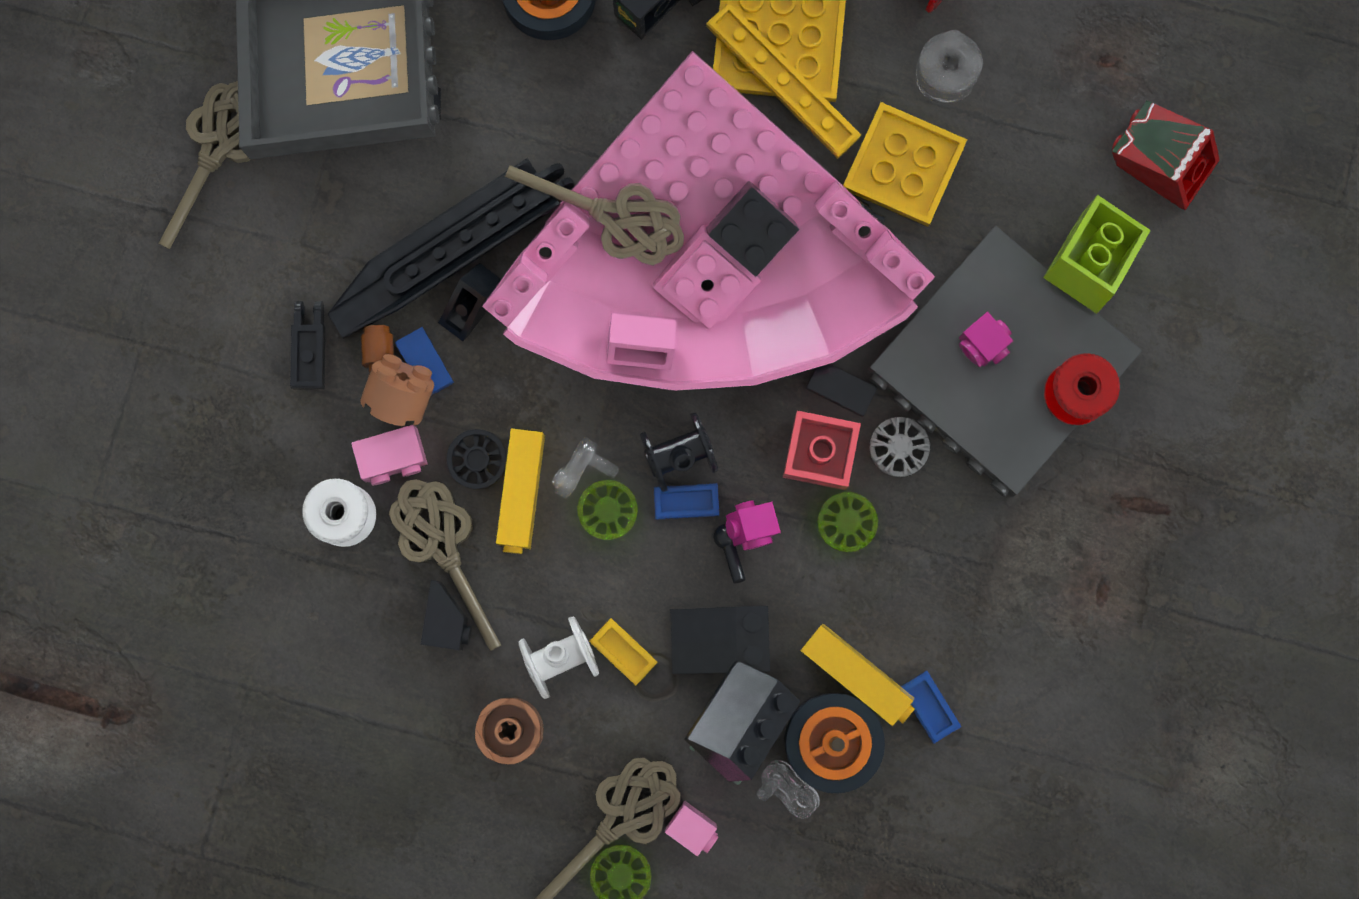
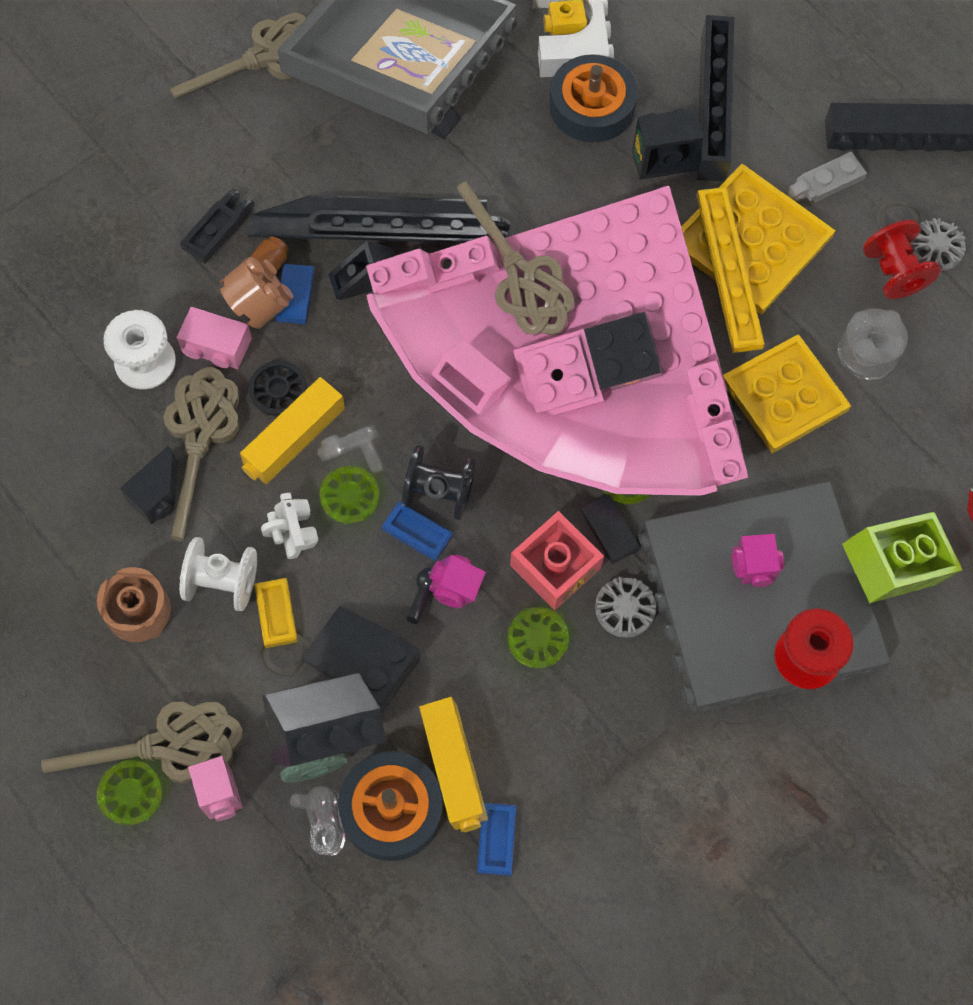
camera: 30 degrees right, 15 degrees down
(579, 576) = (285, 528): none -> white hips

